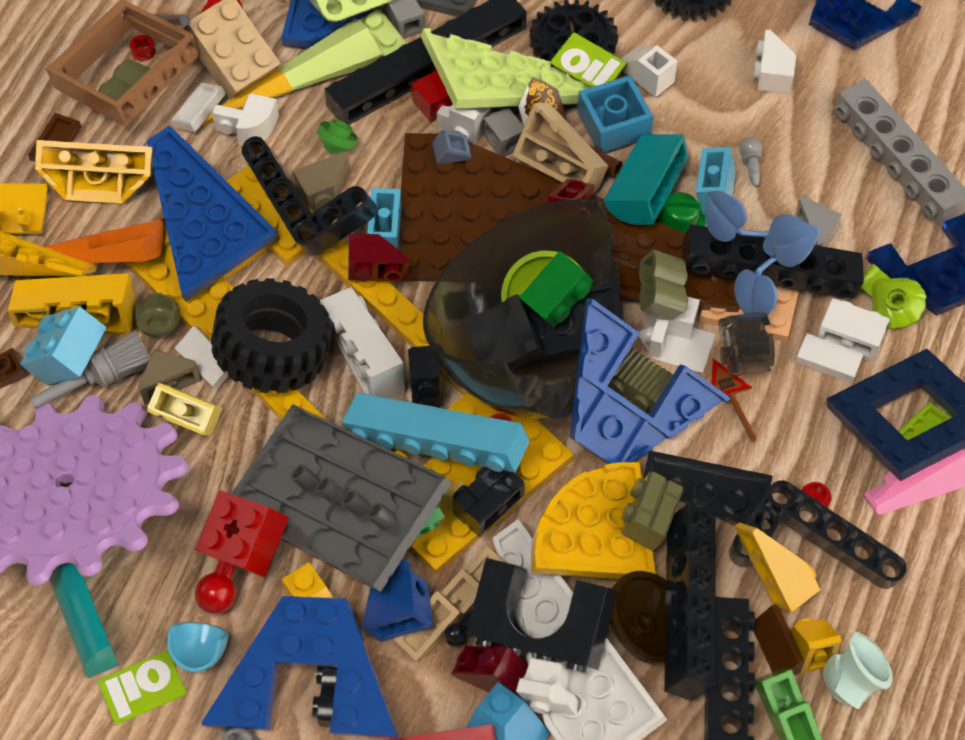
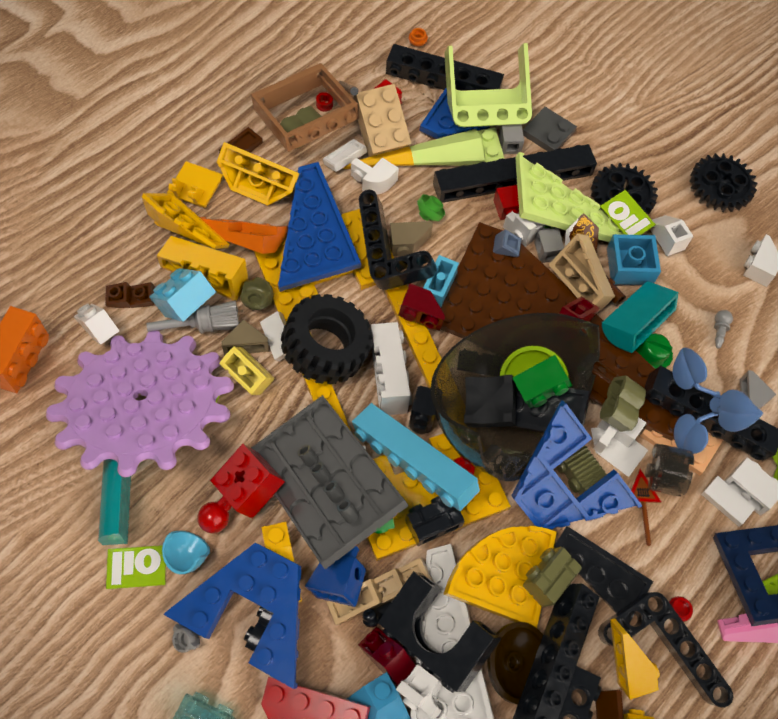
camera: 15 degrees right, 5 degrees up
(715, 173) = (691, 331): medium azure brick -> none

